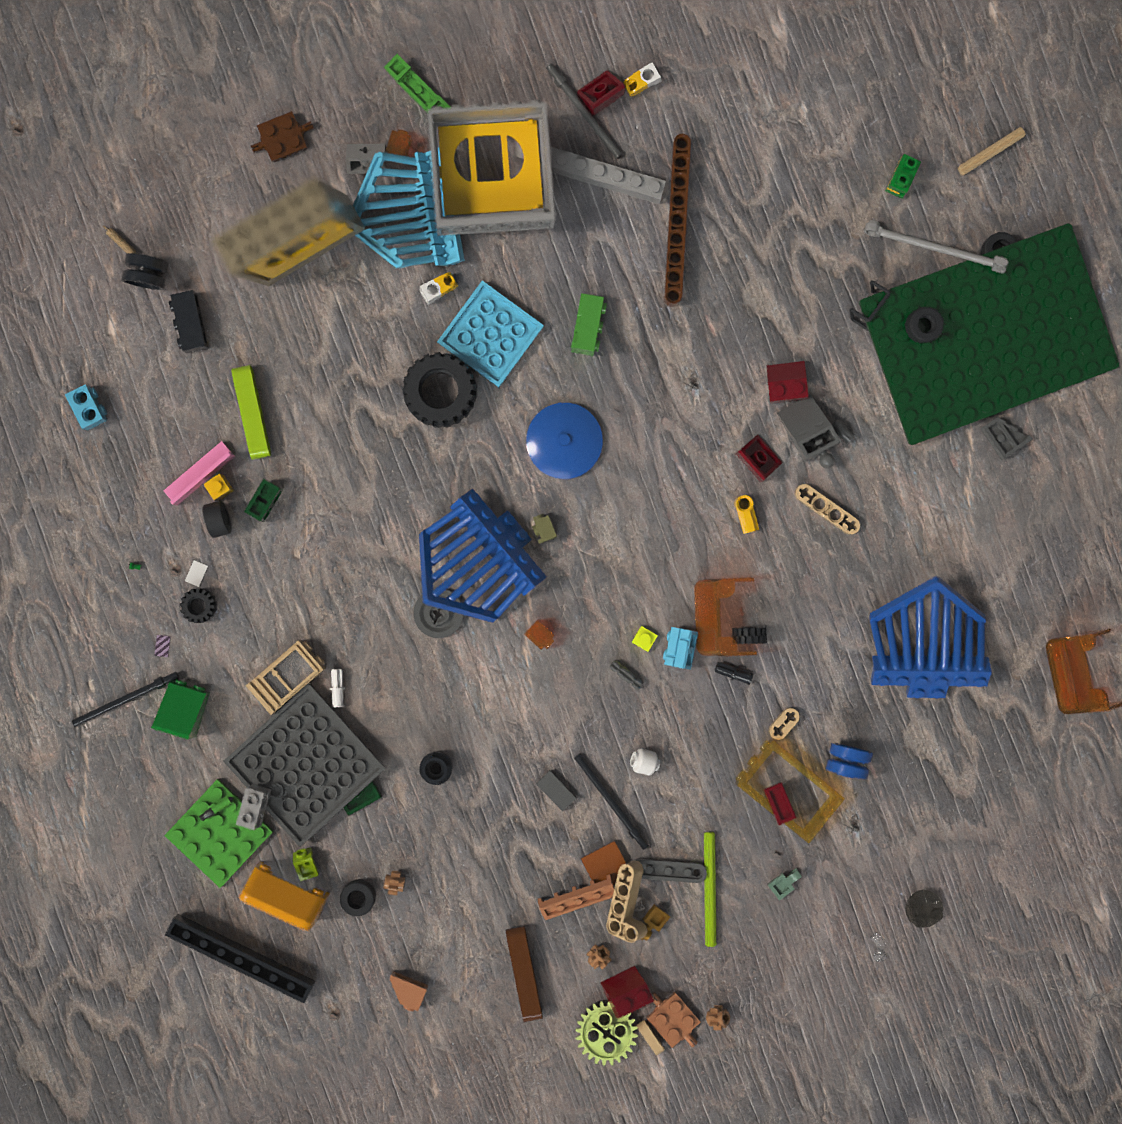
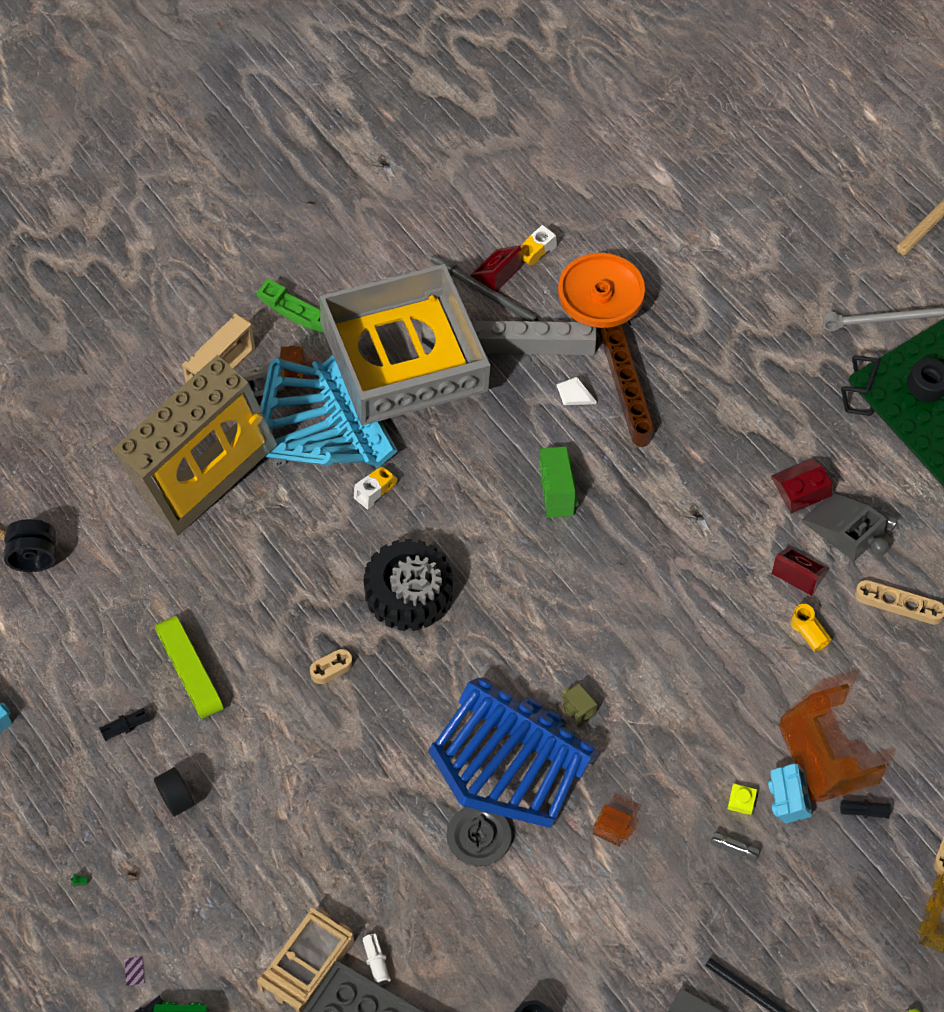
camera: 15 degrees left, 30 degrees down
(188, 321) = (91, 590): black brick -> none
(192, 447) = (124, 724): none -> black pin
(196, 573) = (160, 870): white sticker -> none
(199, 473) = (139, 752): bright pink panel -> none
(210, 605) = (171, 919): black tyre -> none
(218, 487) = (167, 756): yellow brick -> none
(263, 500) = (227, 756): dark green brick -> none
(282, 136) = (155, 385): reddish brown plate -> none
(338, 125) = (231, 342): none -> tan door
(360, 437) = (331, 666): none -> tan beam
(450, 395) = (416, 580): none -> light grey gear
(490, 334) = (450, 516): medium azure plate -> none
(564, 440) = (569, 608): blue dish -> none
(629, 241) = (574, 393): none -> white piece
(644, 762) = (797, 942): white head -> none
(679, 153) = (601, 290): none -> orange dish
(750, 635) = (869, 752): black tyre -> none
(903, 176) = (843, 264): green hips -> none

